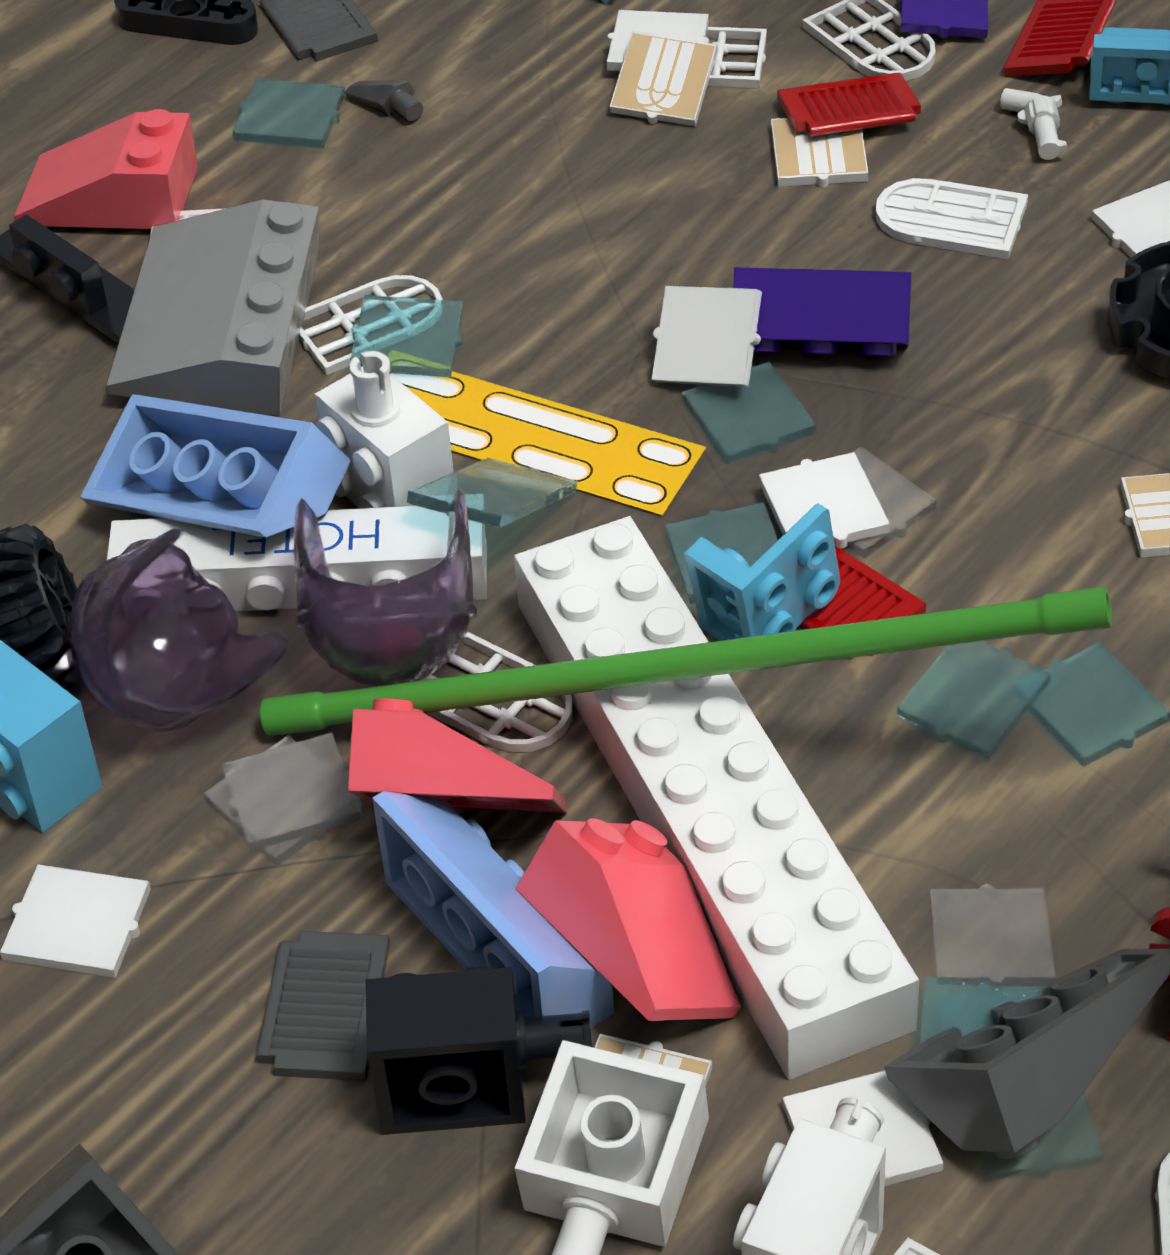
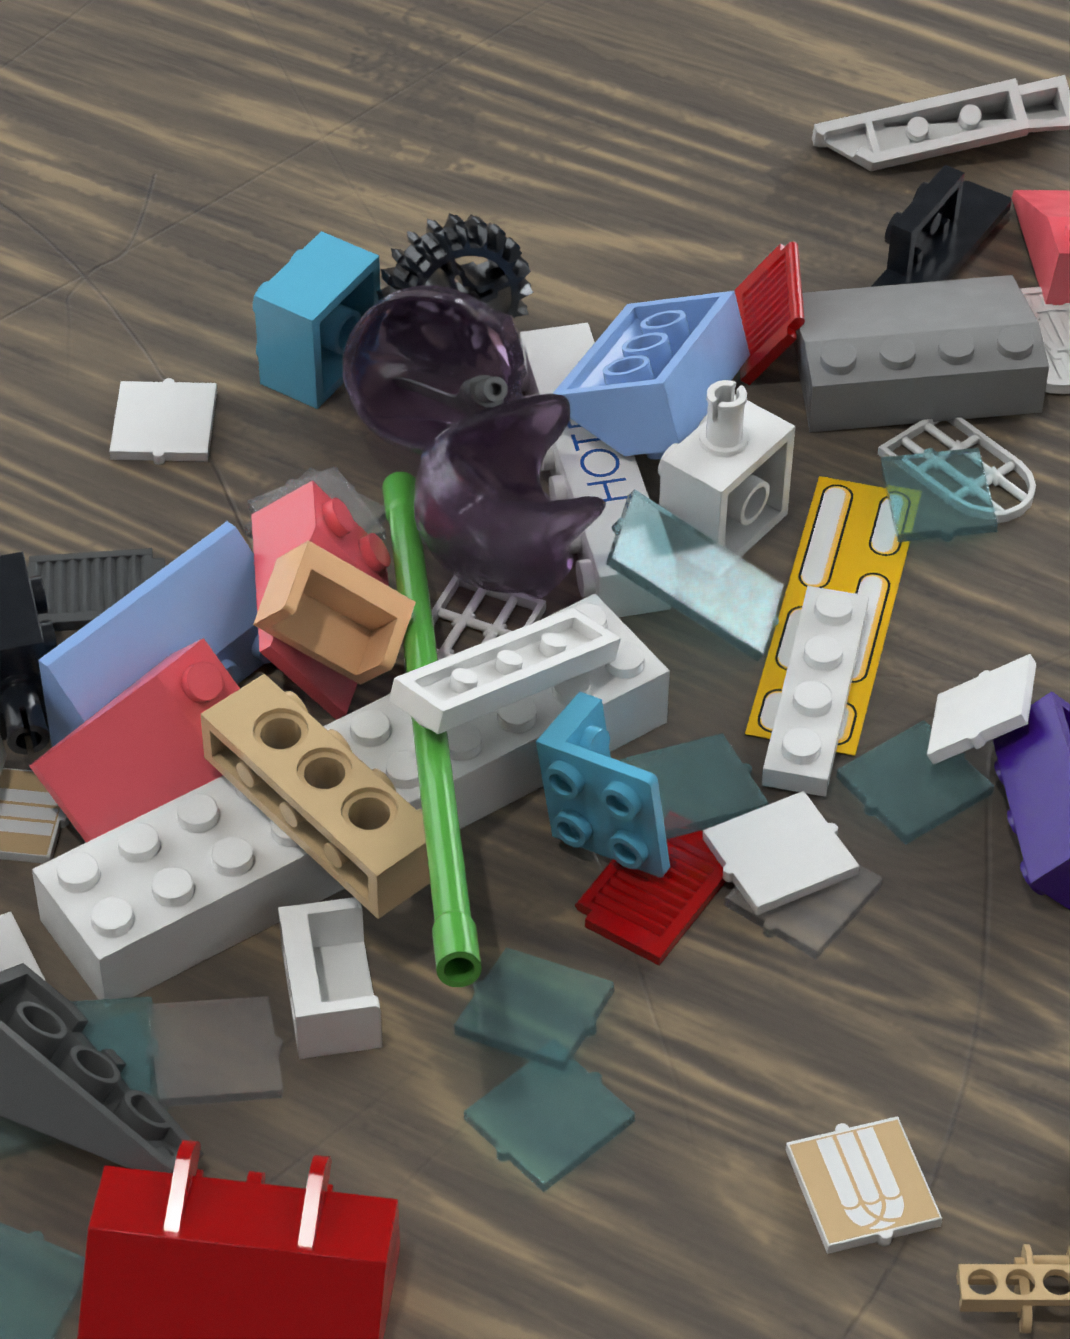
camera: 75 degrees right, 0 degrees up
(104, 378) = (770, 309): none -> red window
(299, 539) = (472, 397): none -> dark grey piece
(532, 722) = (334, 613): none -> light nougat panel
(631, 452) = (815, 691): none -> white plate
(669, 587) = (503, 670): none -> white plate
(772, 758) = (319, 793): none -> tan brick
(929, 843) = (329, 978): none -> white panel

